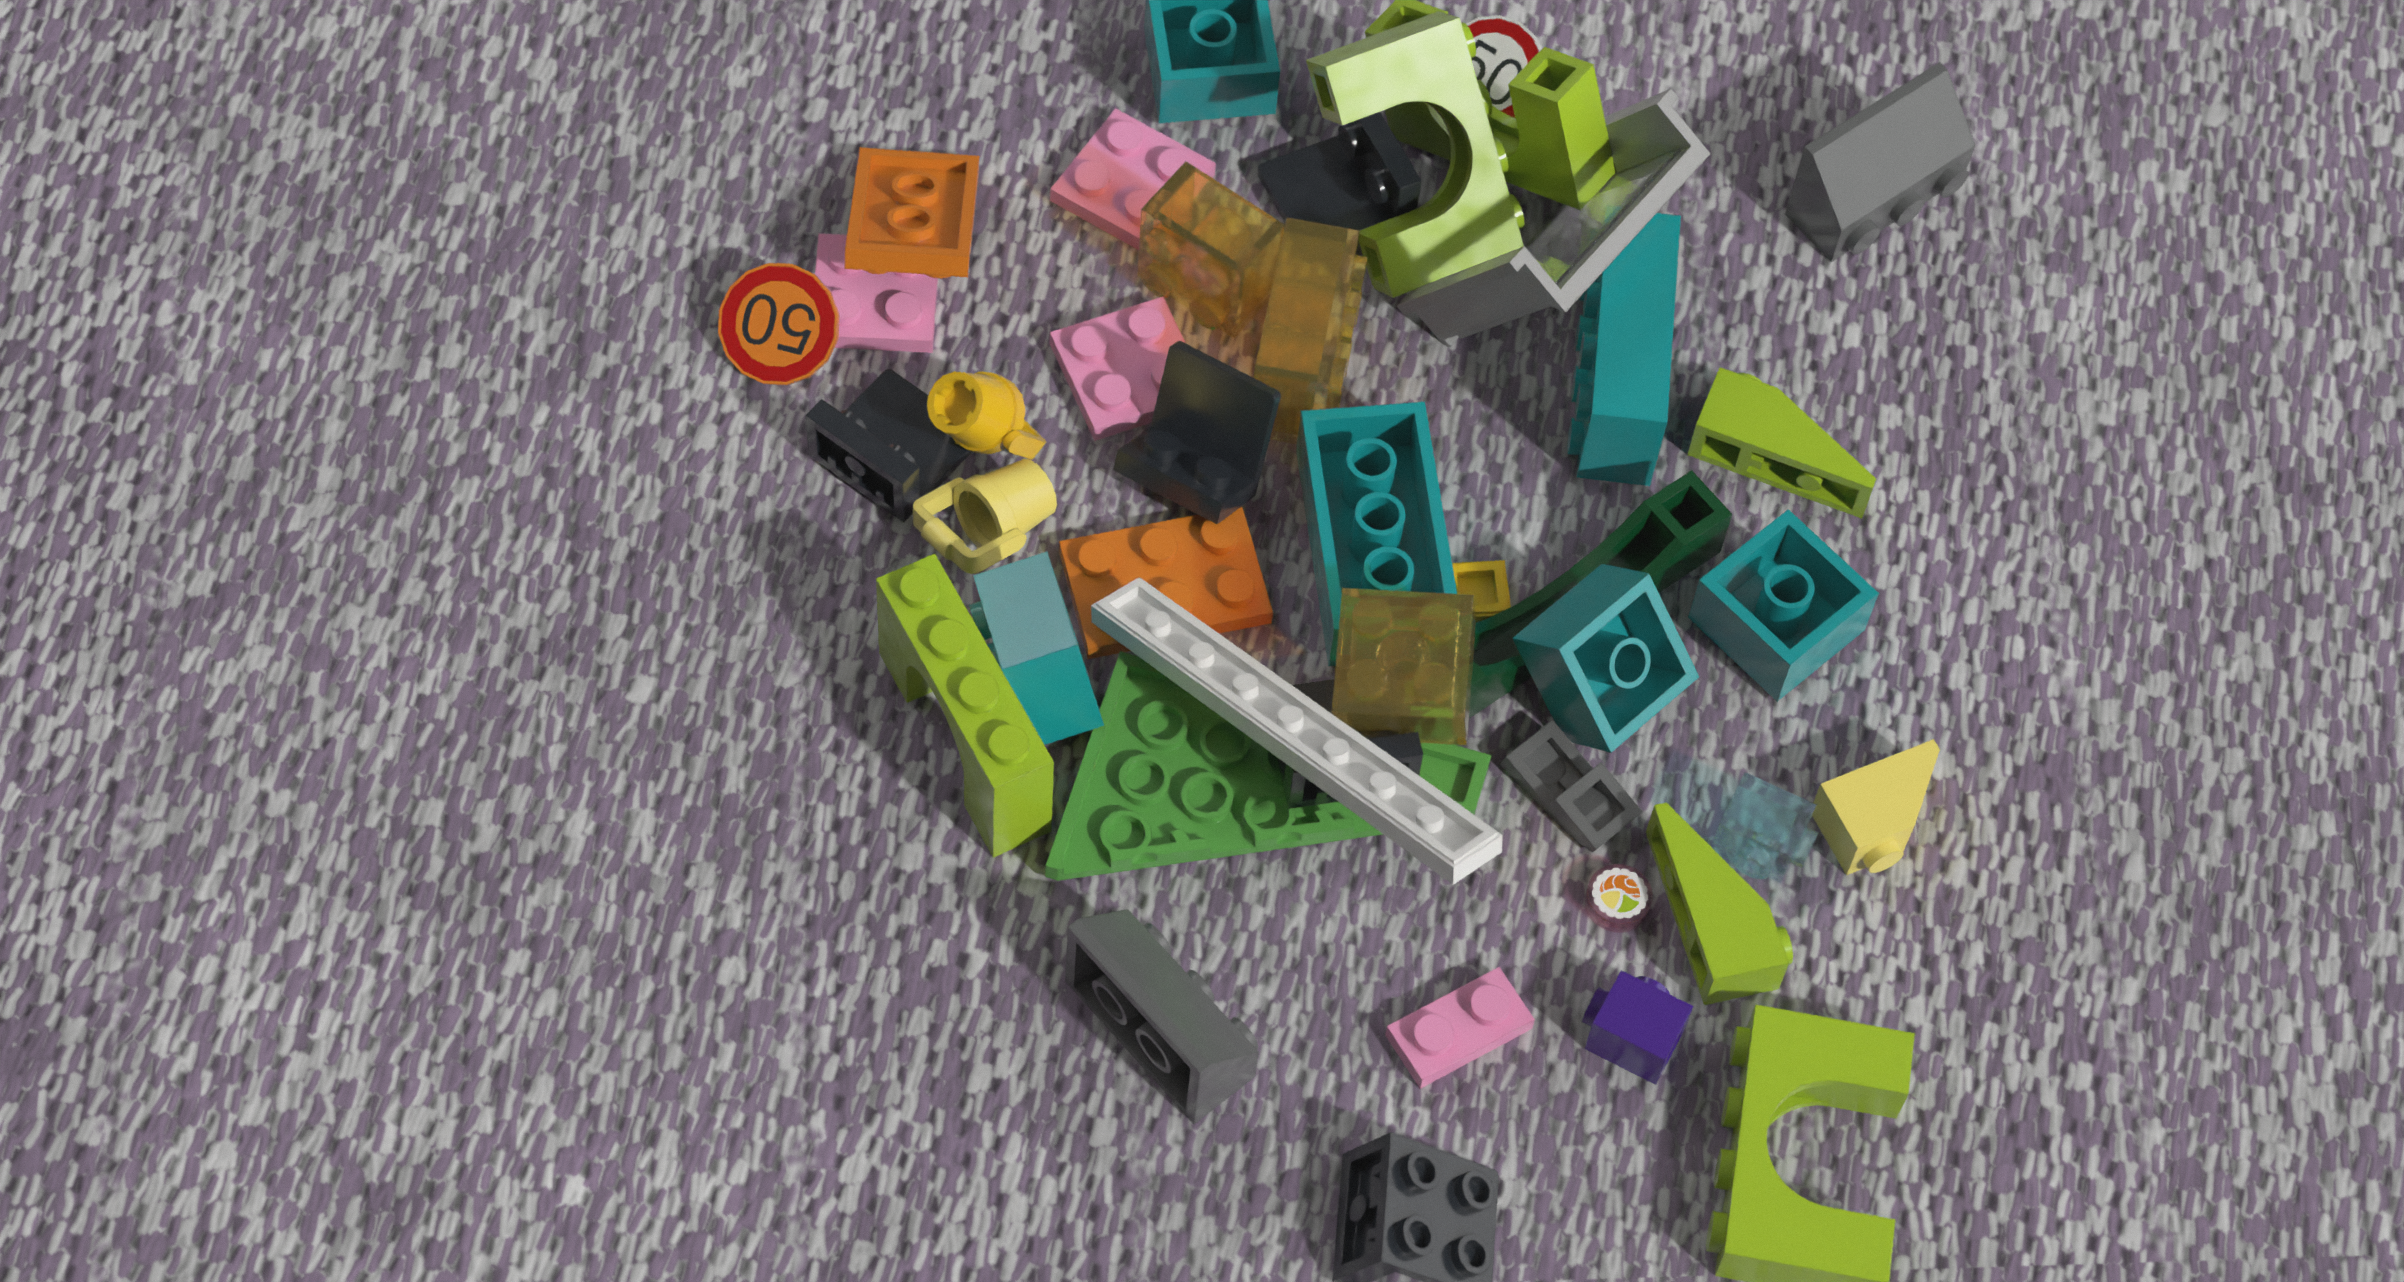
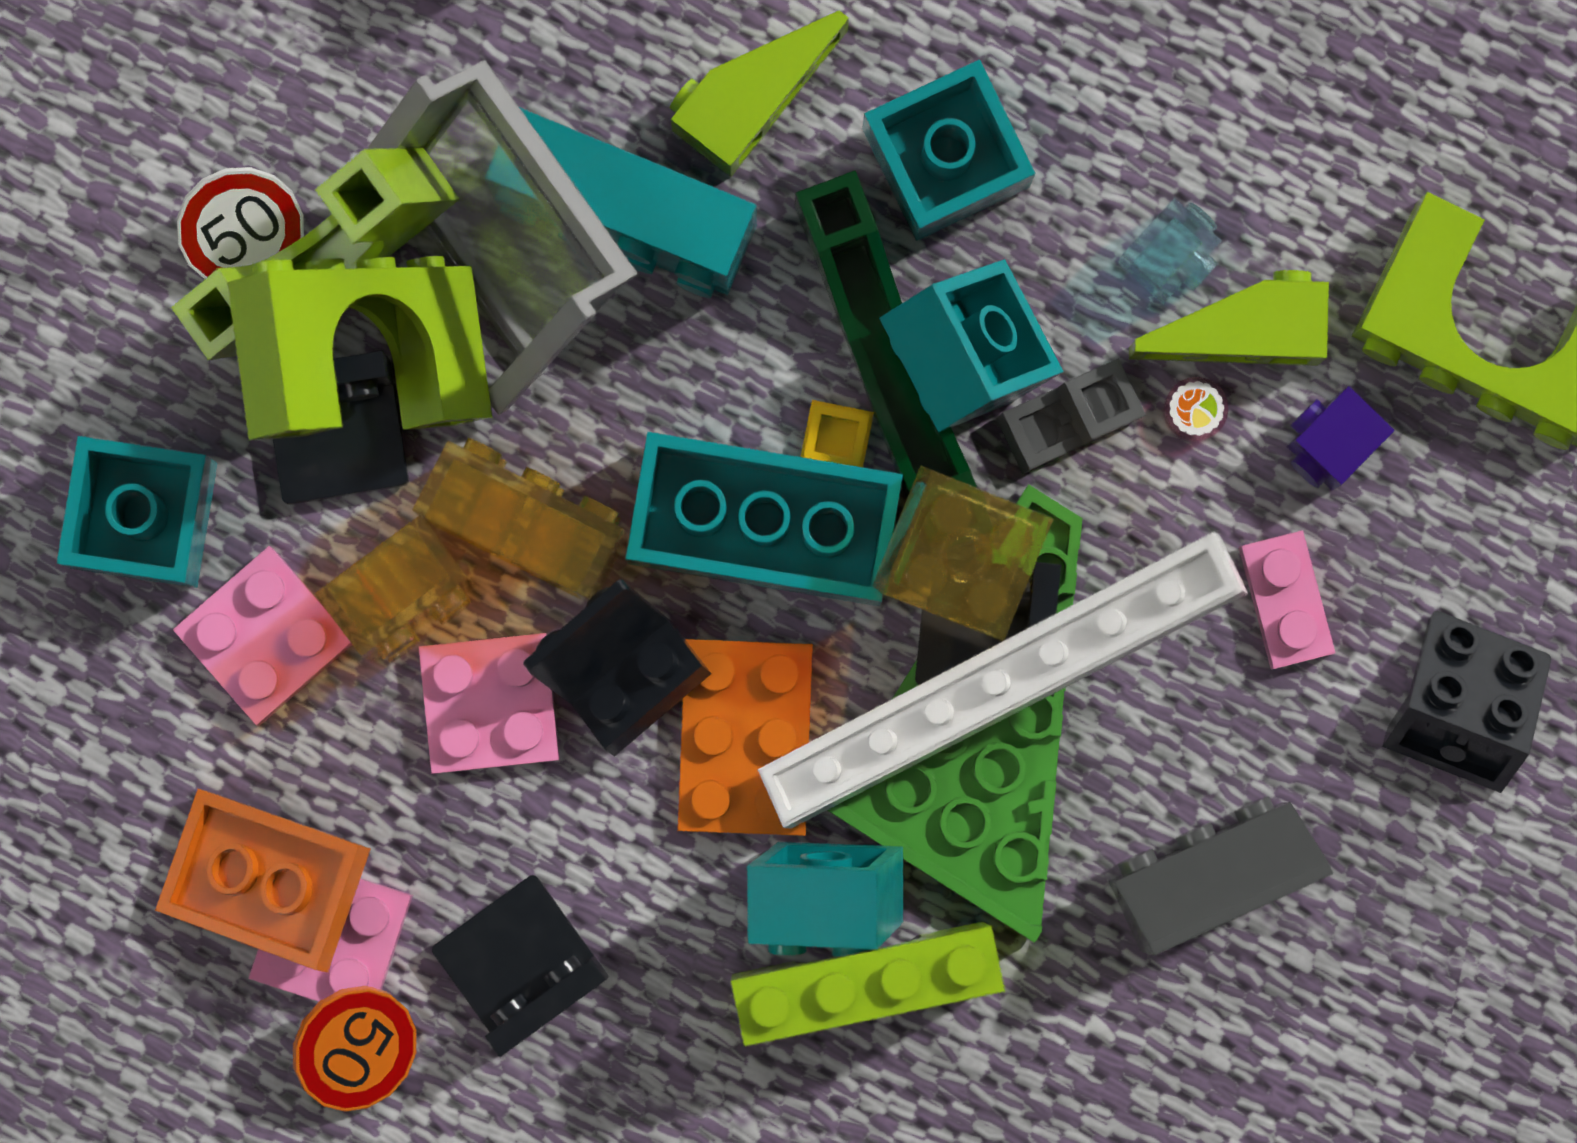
camera: 75 degrees left, 25 degrees up
(983, 414) = (528, 873): yellow piece -> none
(992, 511) = (630, 882): light yellow piece -> none
(1875, 808) = (1178, 135): light yellow slope -> none

